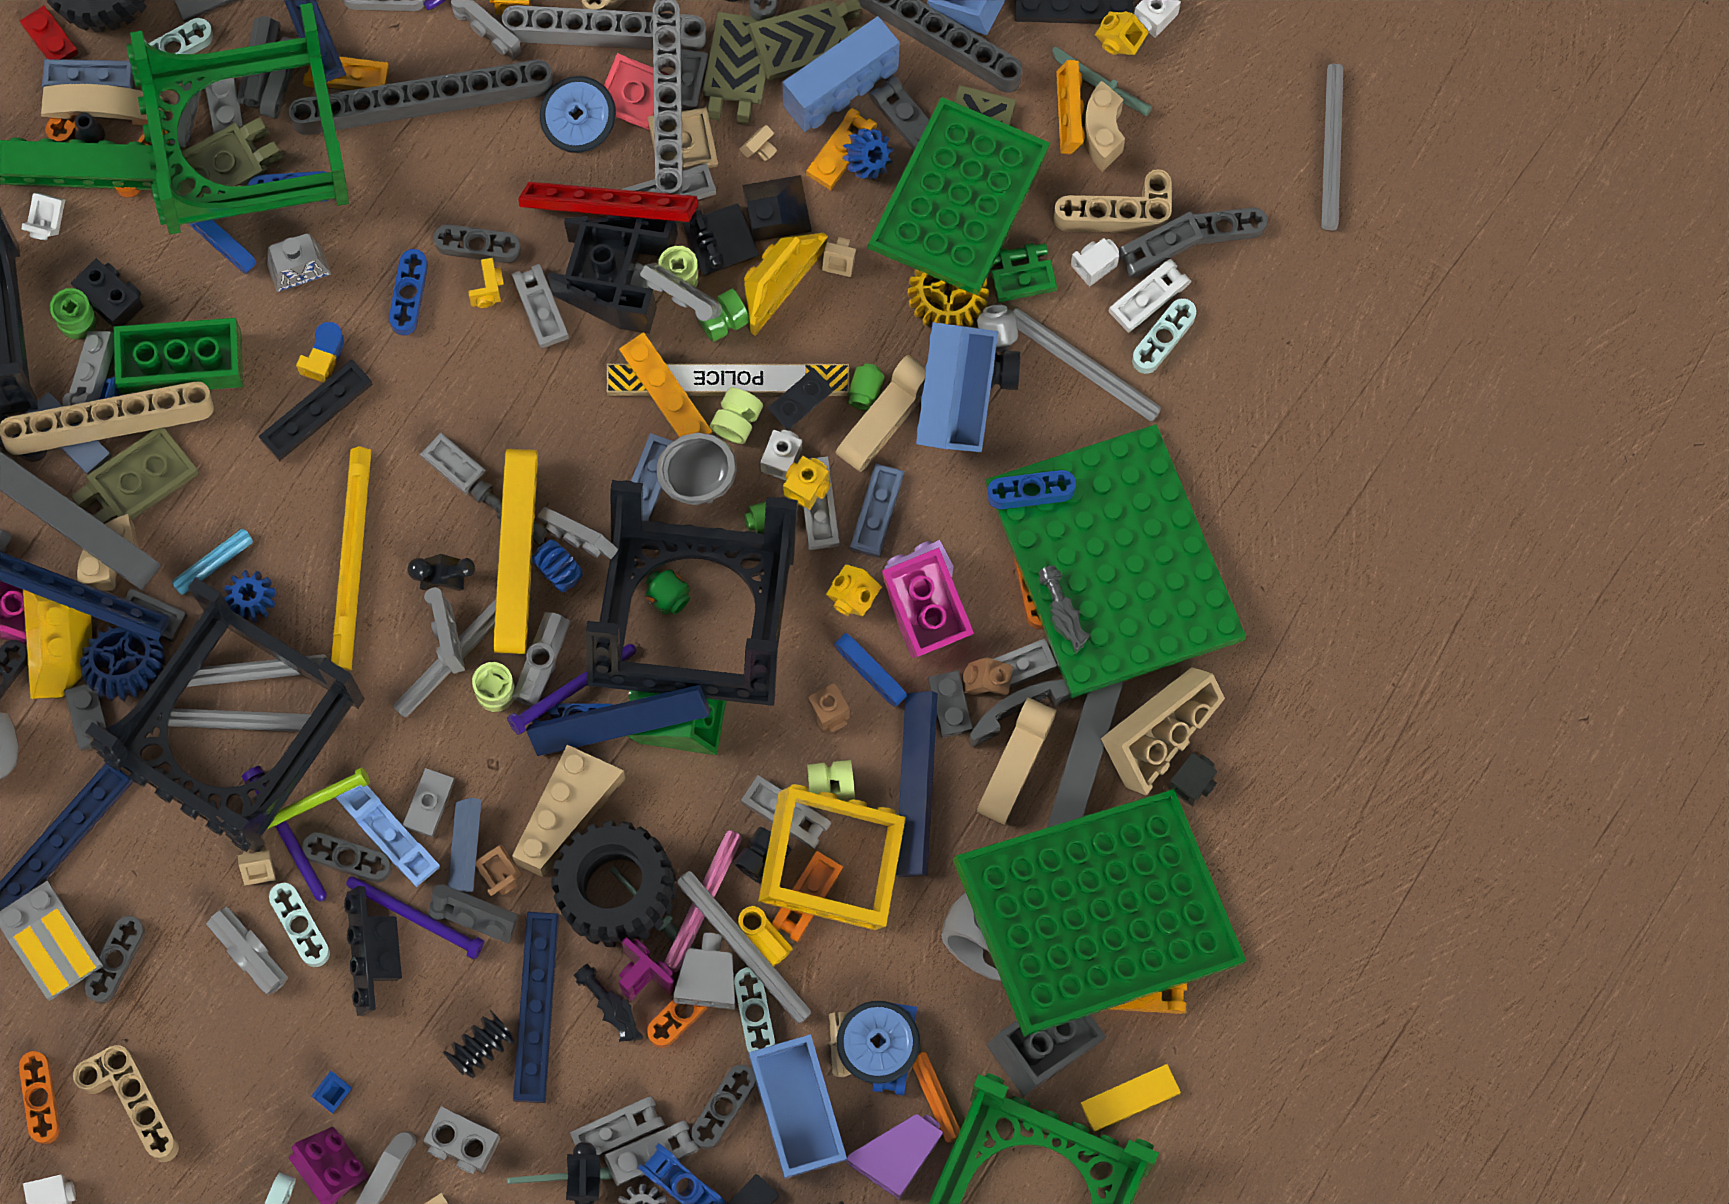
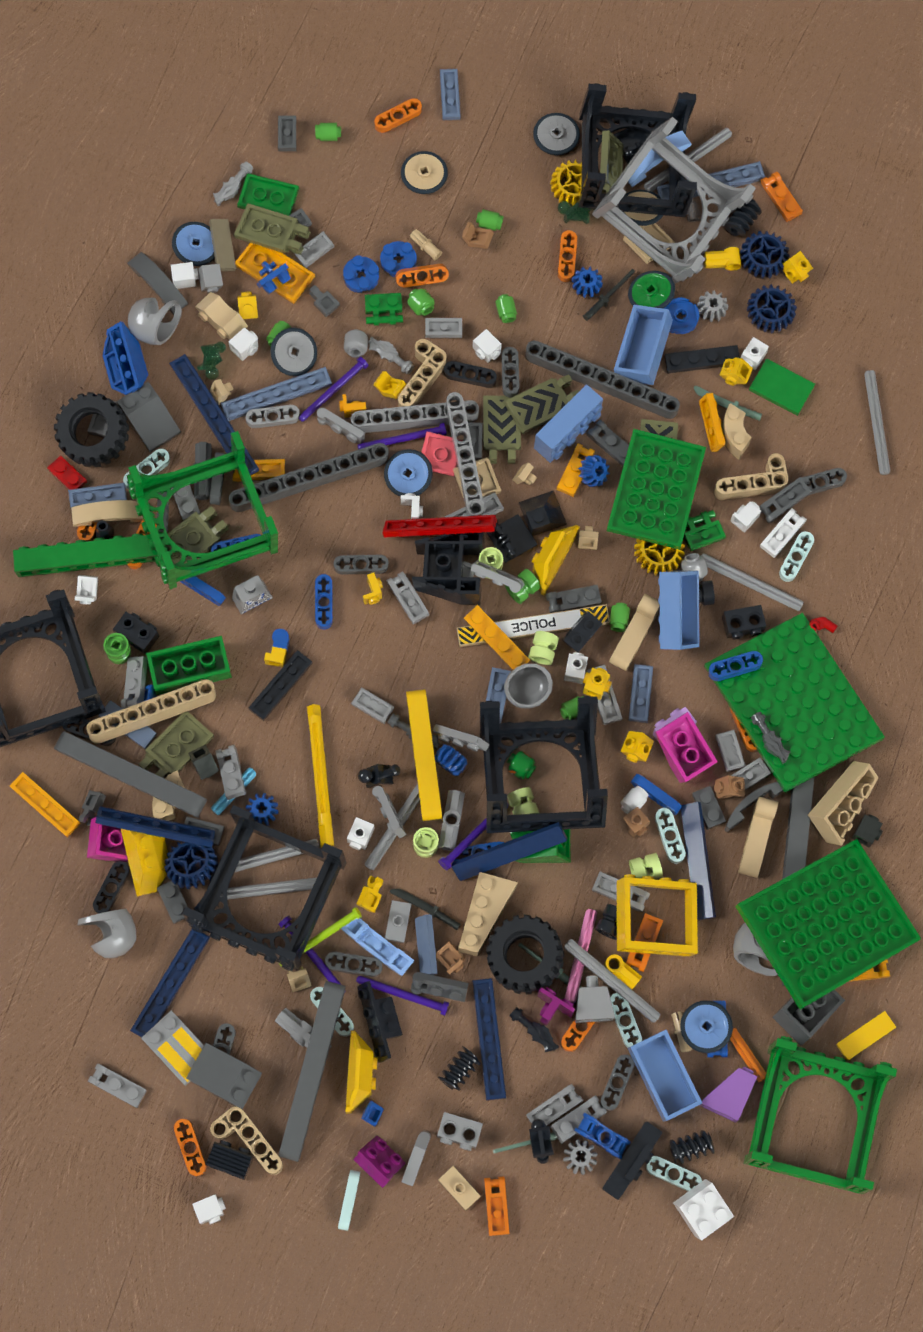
camera: 10 degrees left, 0 degrees up
(95, 1126) = (230, 1160): none -> black brick
(109, 995) = (224, 1076): none -> dark grey slope
(172, 509) = (203, 762): none -> pearl dark grey brick
(212, 531) = (231, 772): none -> light grey plate
(247, 1010) = (312, 1071): none -> dark grey beam
(323, 1026) = (360, 1072): none -> yellow wedge
(391, 756) = (369, 896): none -> yellow plate
(395, 658) = (360, 834): none -> white brick
(487, 795) = (434, 911): none -> pearl dark grey sword
(577, 158) = (414, 501): none -> white bracket
(588, 57) = (406, 437): none -> dark purple bar
(657, 646) = (522, 795): none -> yellowish green wheel
(800, 347) = (574, 599): none -> dark grey plate
(835, 670) = (635, 798): none -> white brick
(875, 761) = (670, 820): none -> light aqua beam
(1000, 621) = (730, 751): none -> light grey plate
(1059, 416) = (742, 617): none -> black brick
(1185, 446) = (823, 623): none -> red arm
(1192, 69) = (782, 387): none -> green tile

